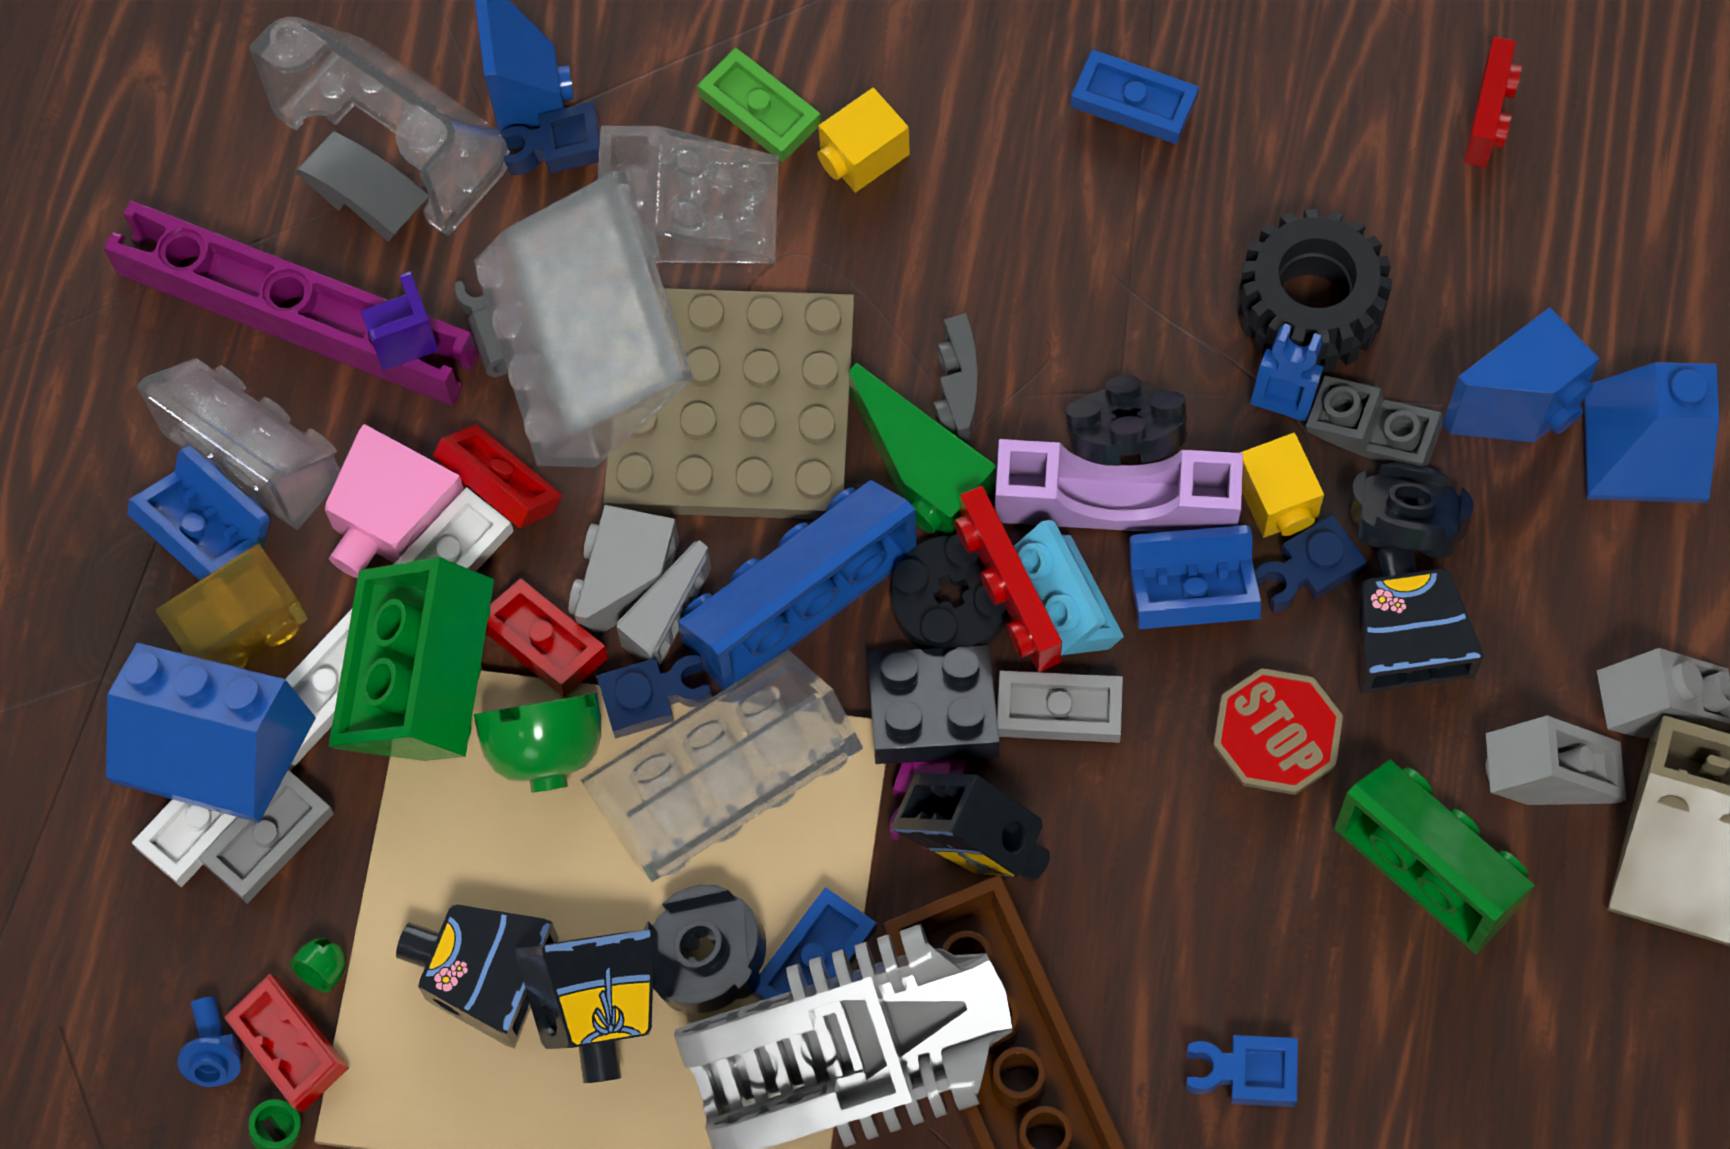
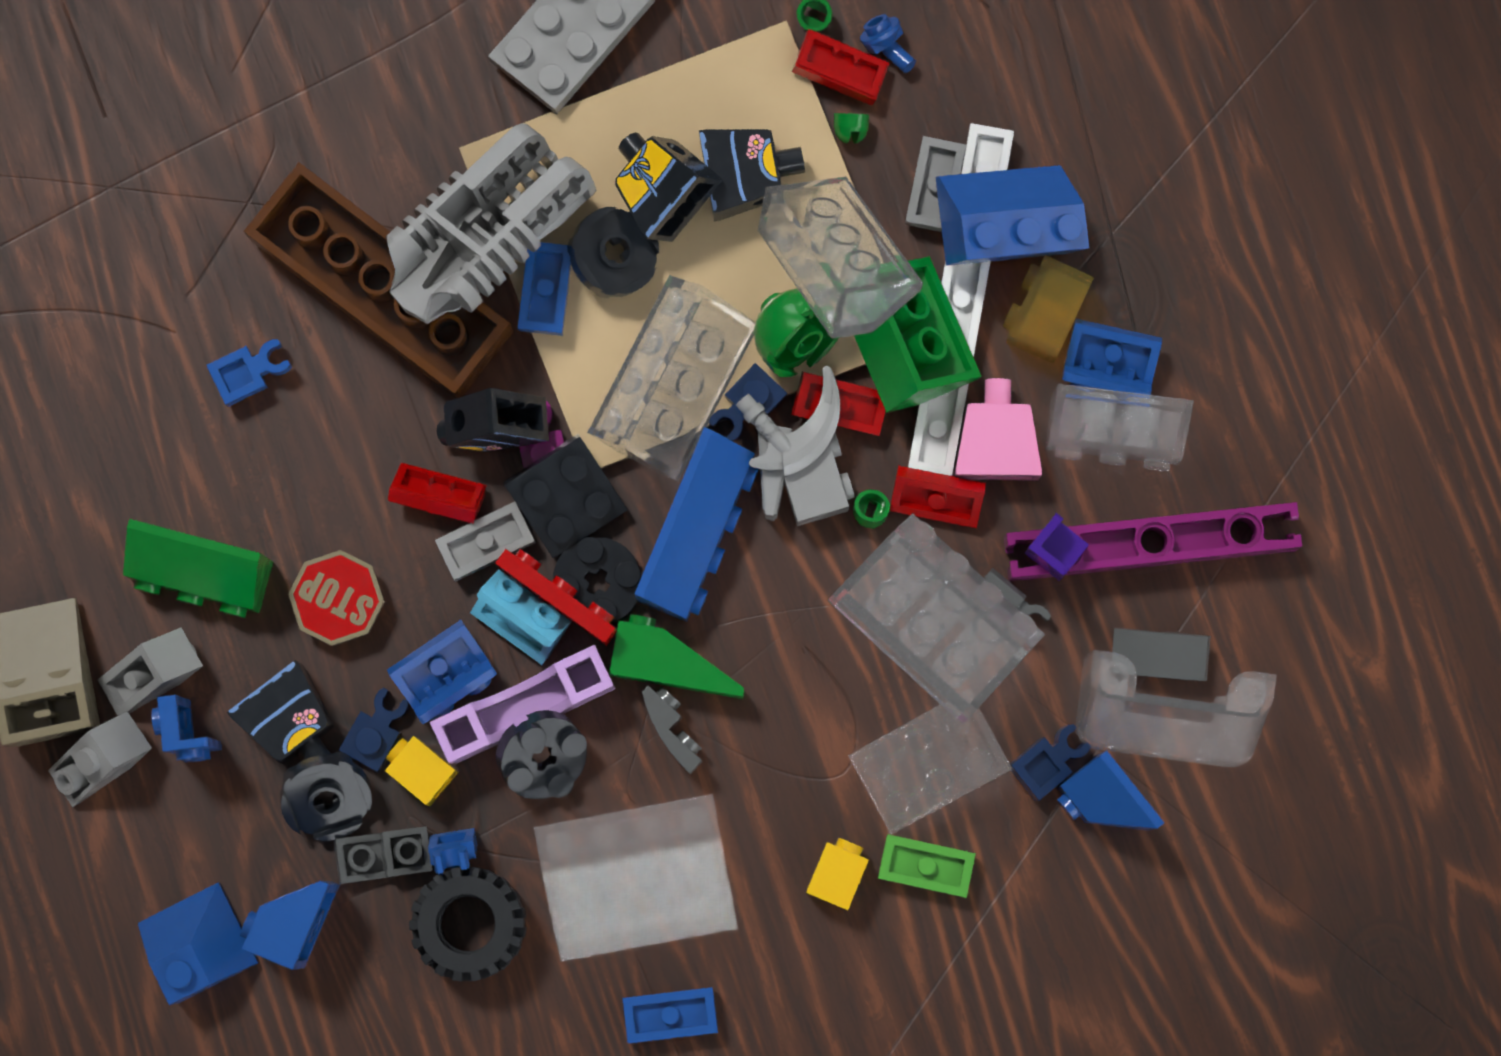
camera: 150 degrees right, 15 degrees up
(432, 770) = (837, 254): none -> clear slope
(575, 496) = (880, 514): none -> green hinge
(613, 595) = (803, 446): none -> light grey piece
(758, 421) = (796, 651): dark tan plate -> none
(1087, 791) = (437, 493): none -> red plate
(1088, 259) = (636, 877): none -> clear slope
(1549, 640) = (175, 726): none -> blue bracket

